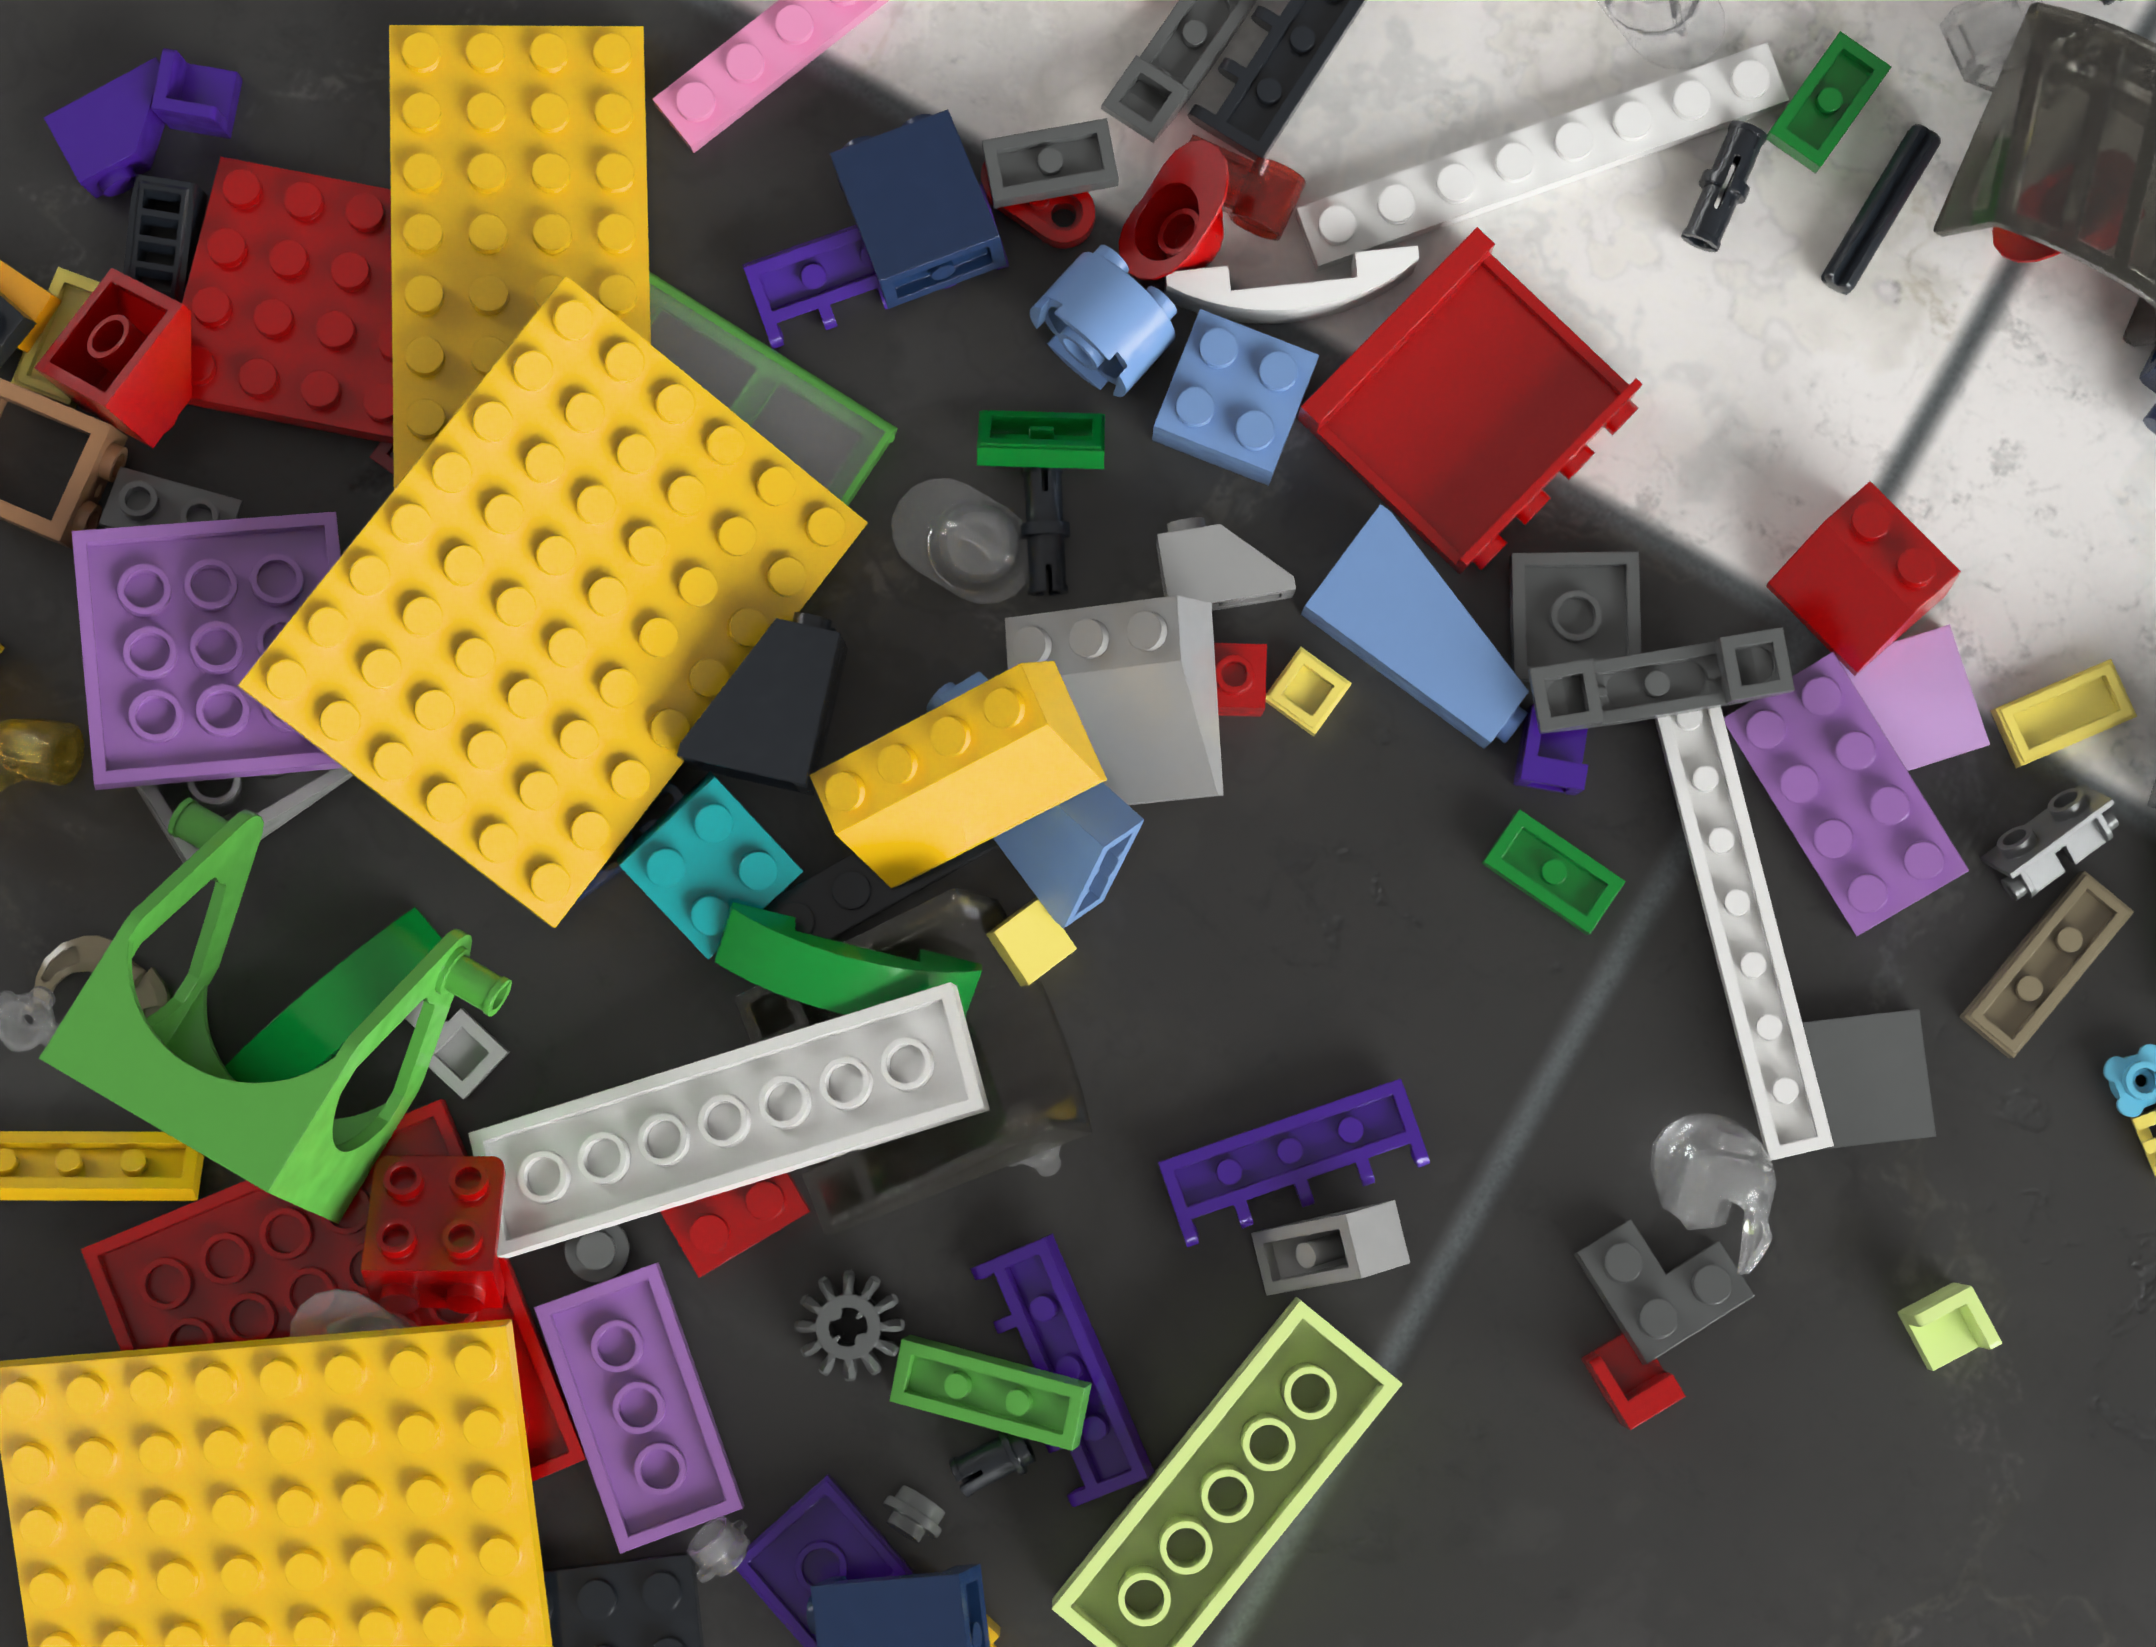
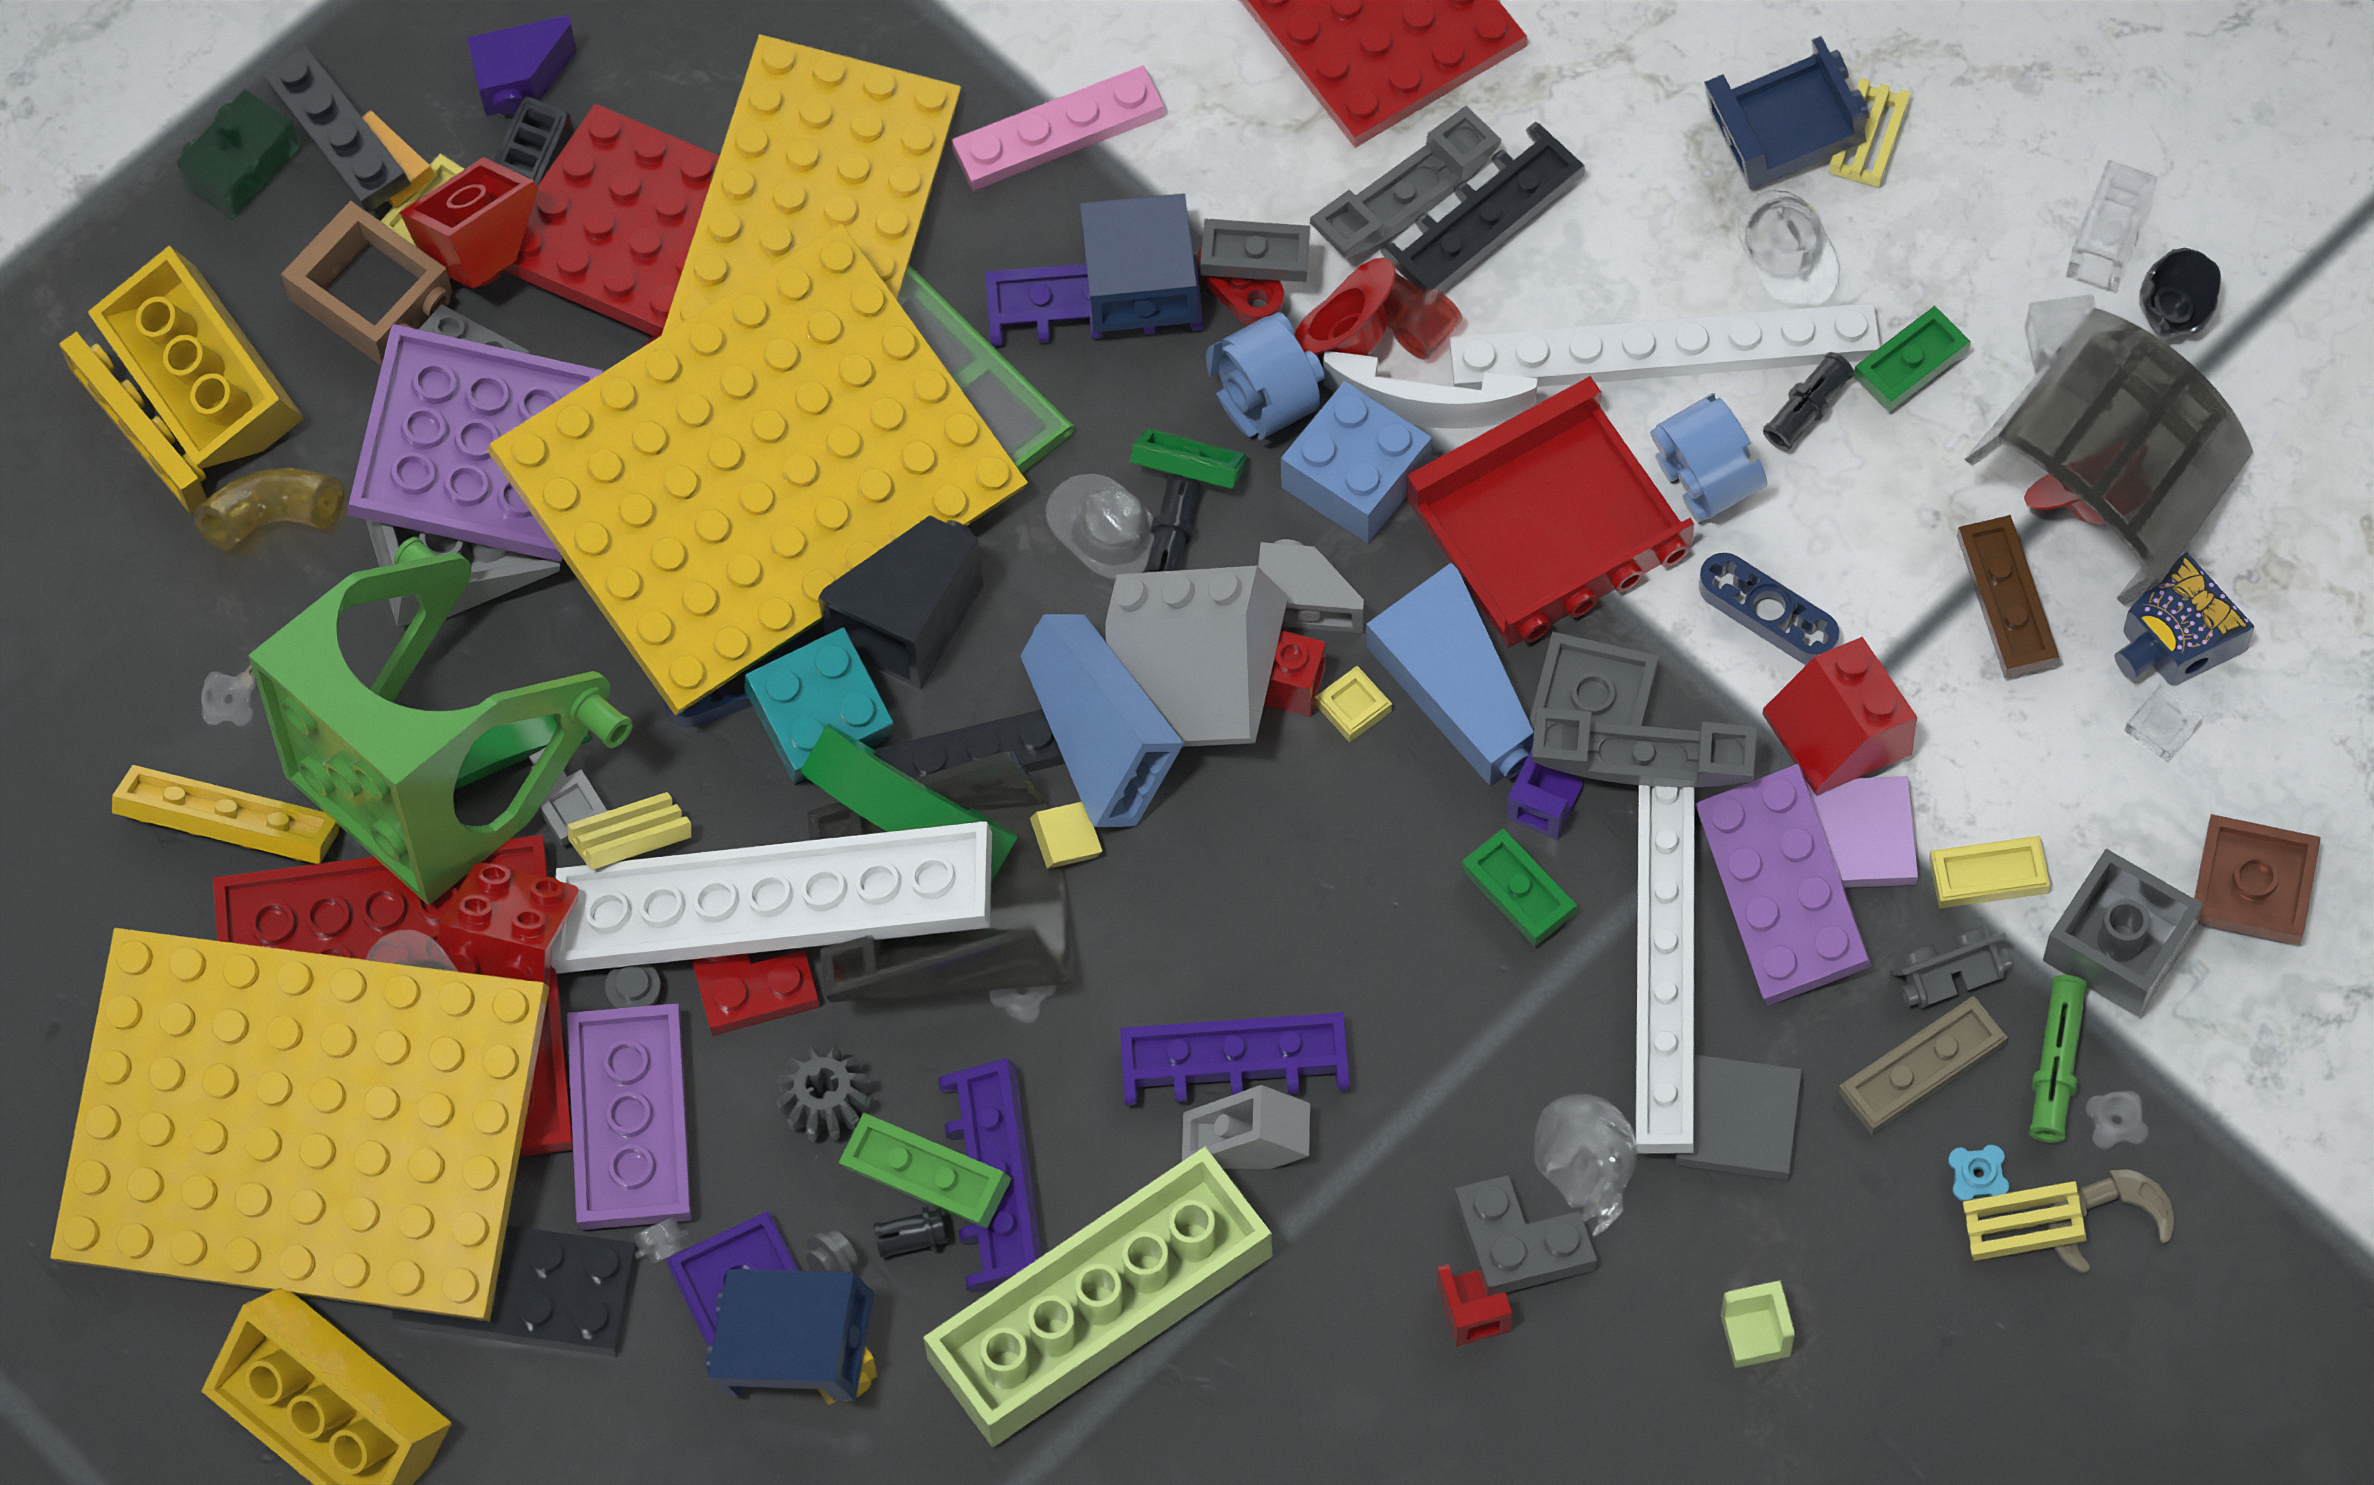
camera: 20 degrees right, 20 degrees down
(196, 96) = (588, 57): dark purple panel -> none
(532, 1060) = (629, 831): none -> light yellow tile
(960, 773) = (1041, 665): yellow slope -> none
(1637, 294) = (1709, 456): none -> medium blue brick
(1780, 485) = (1727, 601): none -> dark blue beam
(1881, 209) = (1936, 450): black axle -> none
(2006, 374) = (2007, 596): none -> reddish brown plate

